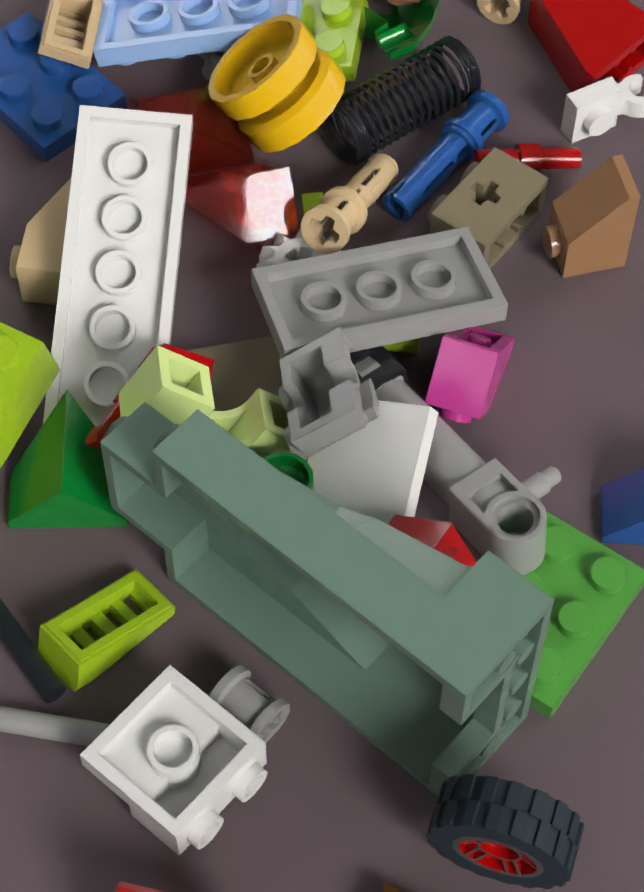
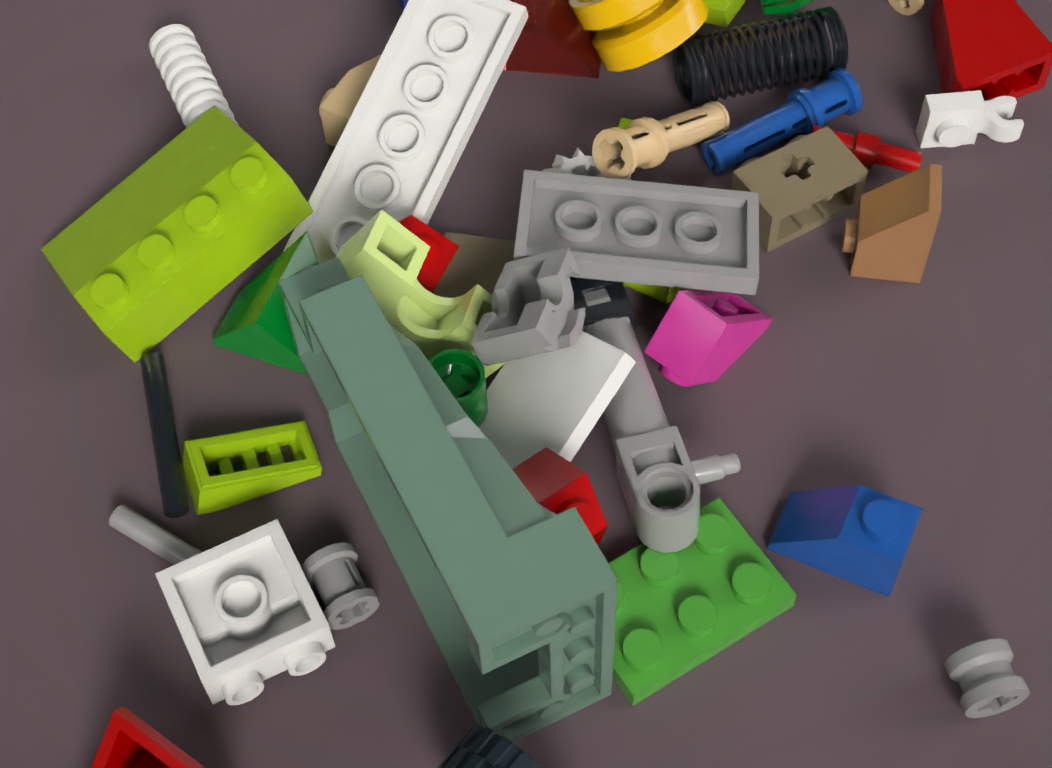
camera: 25 degrees right, 0 degrees up
(248, 201) = (559, 109): clear red slope -> none

